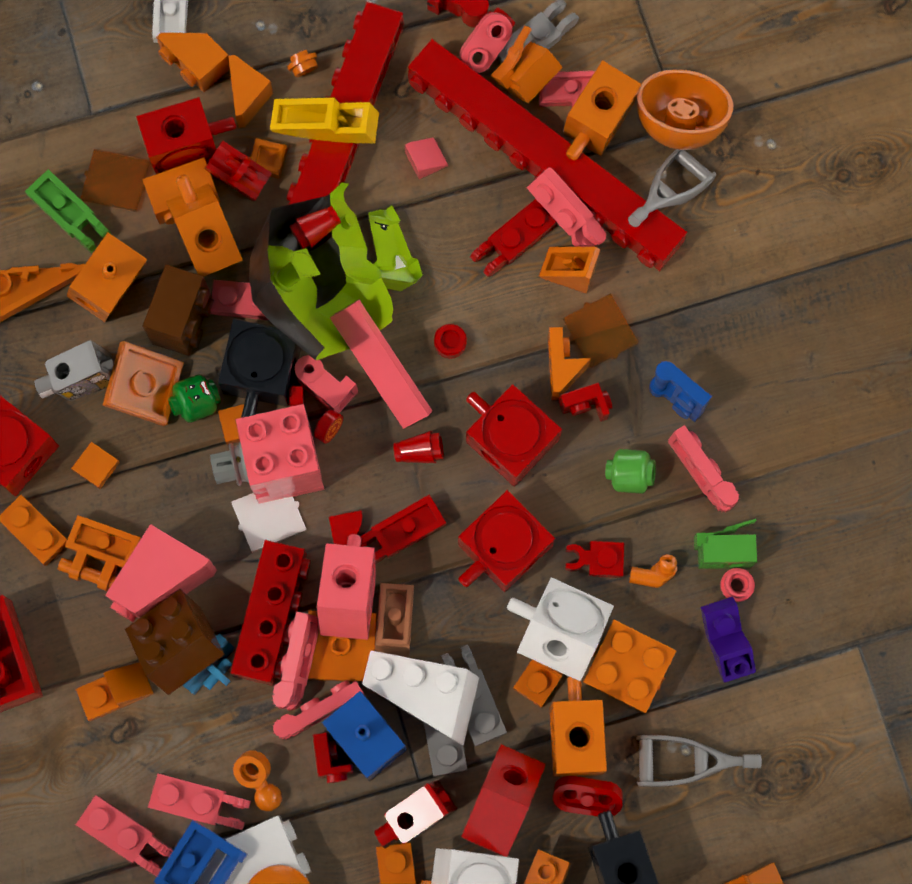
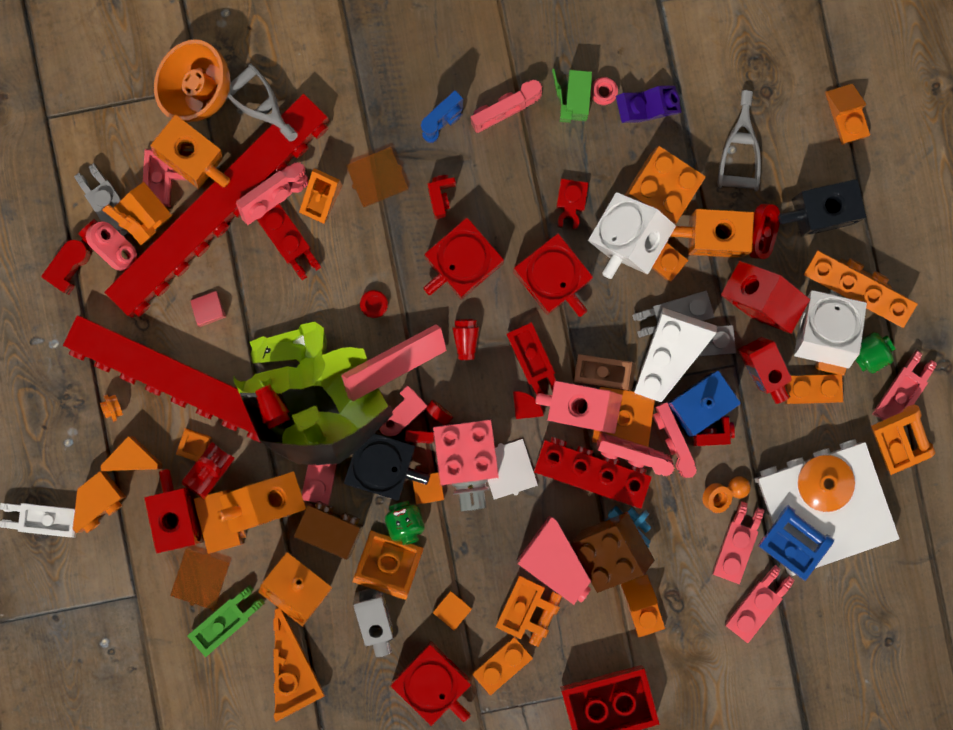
camera: 85 degrees left, 10 degrees up
(325, 120) = (172, 391): yellow slope -> none
(562, 371) = (412, 213): orange slope -> none
(631, 471) = (502, 165): bright green head -> none
(657, 575) = (590, 156): orange arm -> none

